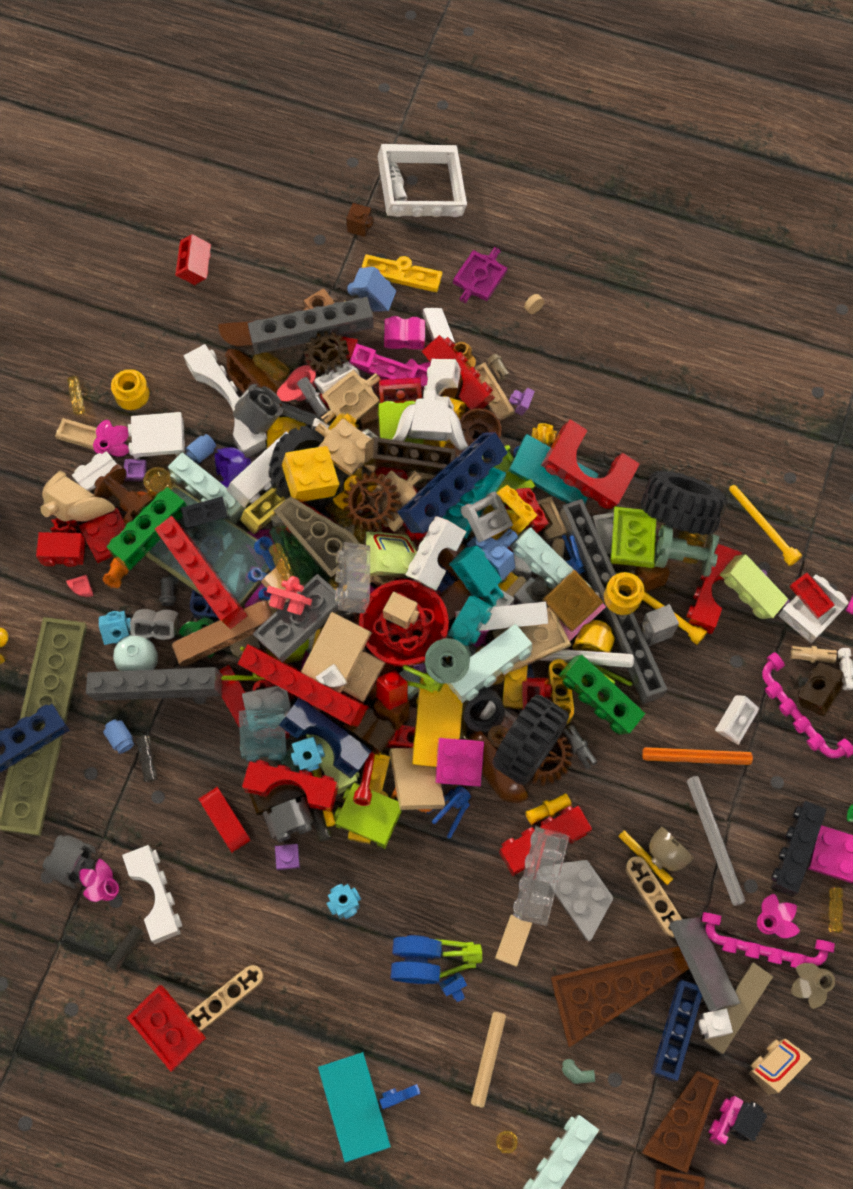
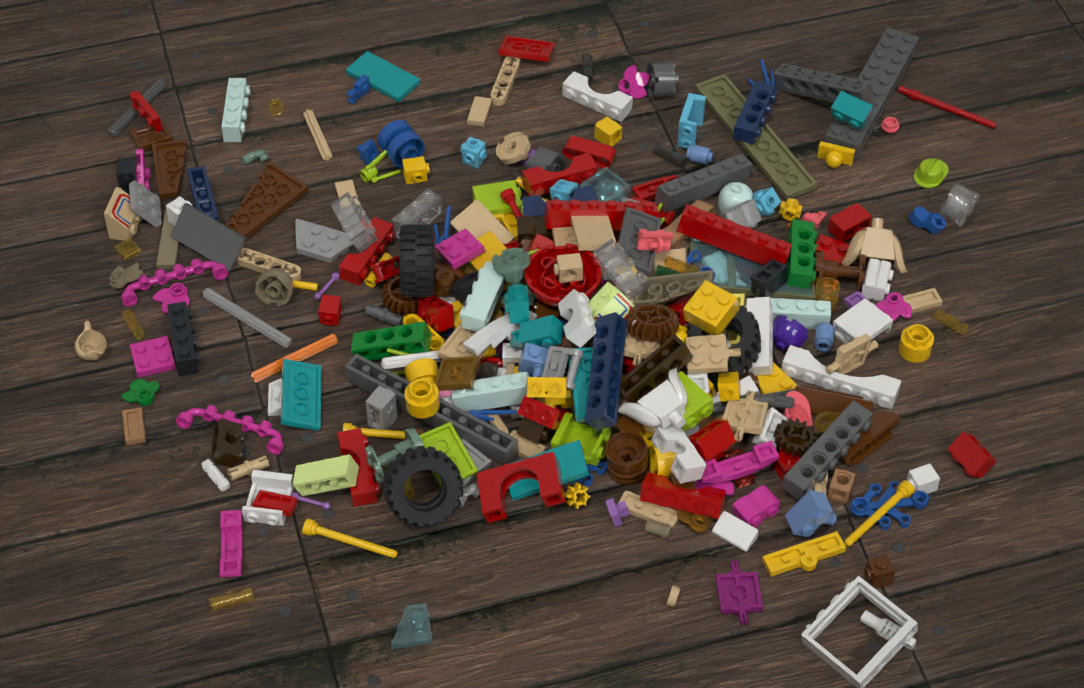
camera: 145 degrees right, 20 degrees down
(97, 603) = (790, 209): none -> yellow gear
(97, 779) = (691, 117): none -> medium azure panel
(182, 834) = (608, 131): none -> yellow brick
(198, 723) = (648, 190): none -> red hinge
(203, 403) = (852, 355): none -> tan plate
(251, 269) = (924, 478): none -> white brick
(258, 408) = (793, 365): dark grey brick -> none
(276, 269) = (904, 490): none -> yellow piece
(288, 969) = (479, 111): none -> tan tile
(296, 274) = (869, 507): none -> blue plant
(311, 875) = (509, 155): none -> tan plate
(331, 677) = (582, 218): white tile -> none
(421, 920) = (415, 170): none -> yellow brick
(464, 852) = (419, 211): none -> clear brick
(541, 792) = (385, 269): none -> red piece
(594, 836) = (335, 276): none -> medium lavender hinge
(628, 502) = (468, 490): none -> light grey arm
(630, 787) = (330, 310): none -> red brick
(718, 702) = (301, 395): none -> teal tile
(746, 1067) = (145, 203): none -> light grey plate
(761, 409) = (413, 628): none -> clear light blue wing
(790, 1026) = (127, 249): none -> clear yellow tile

